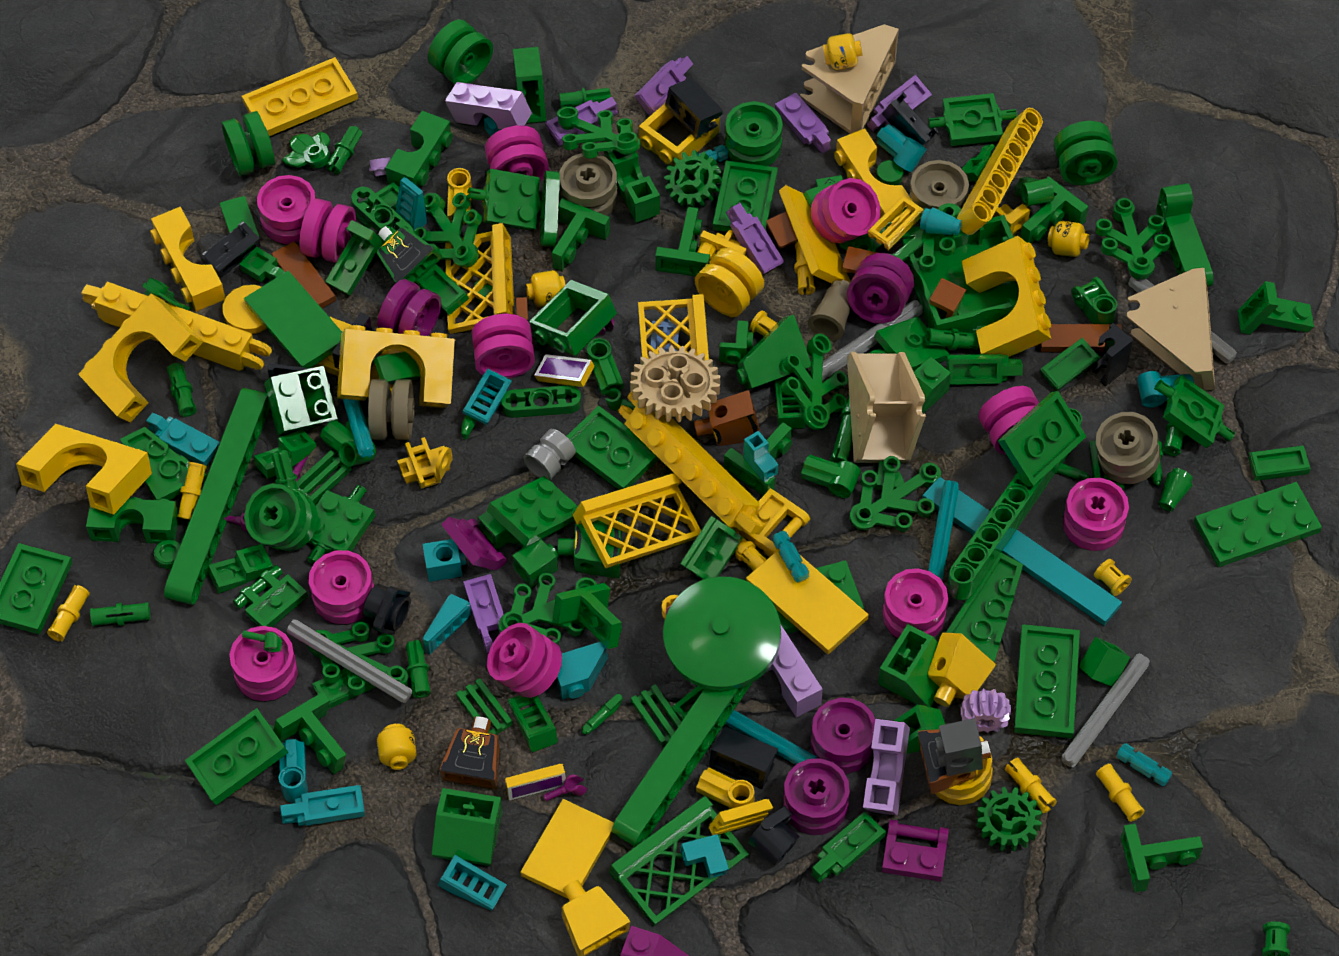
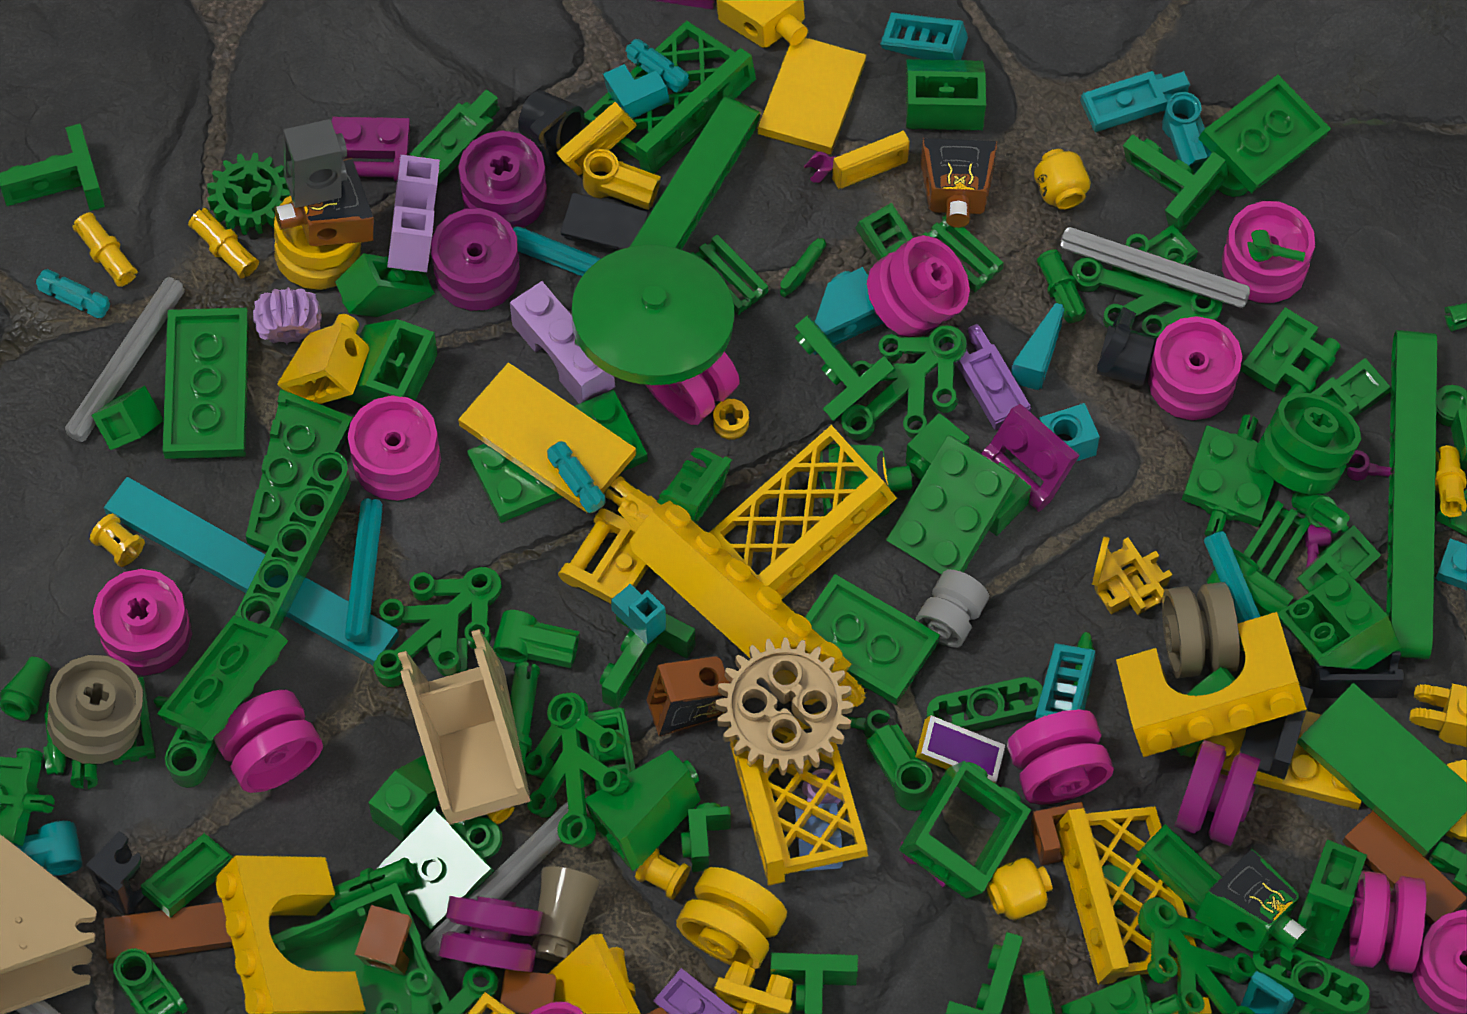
camera: 170 degrees right, 5 degrees up
(685, 877) = (652, 60): none -> teal axle
(982, 368) = (352, 840): green hinge -> none

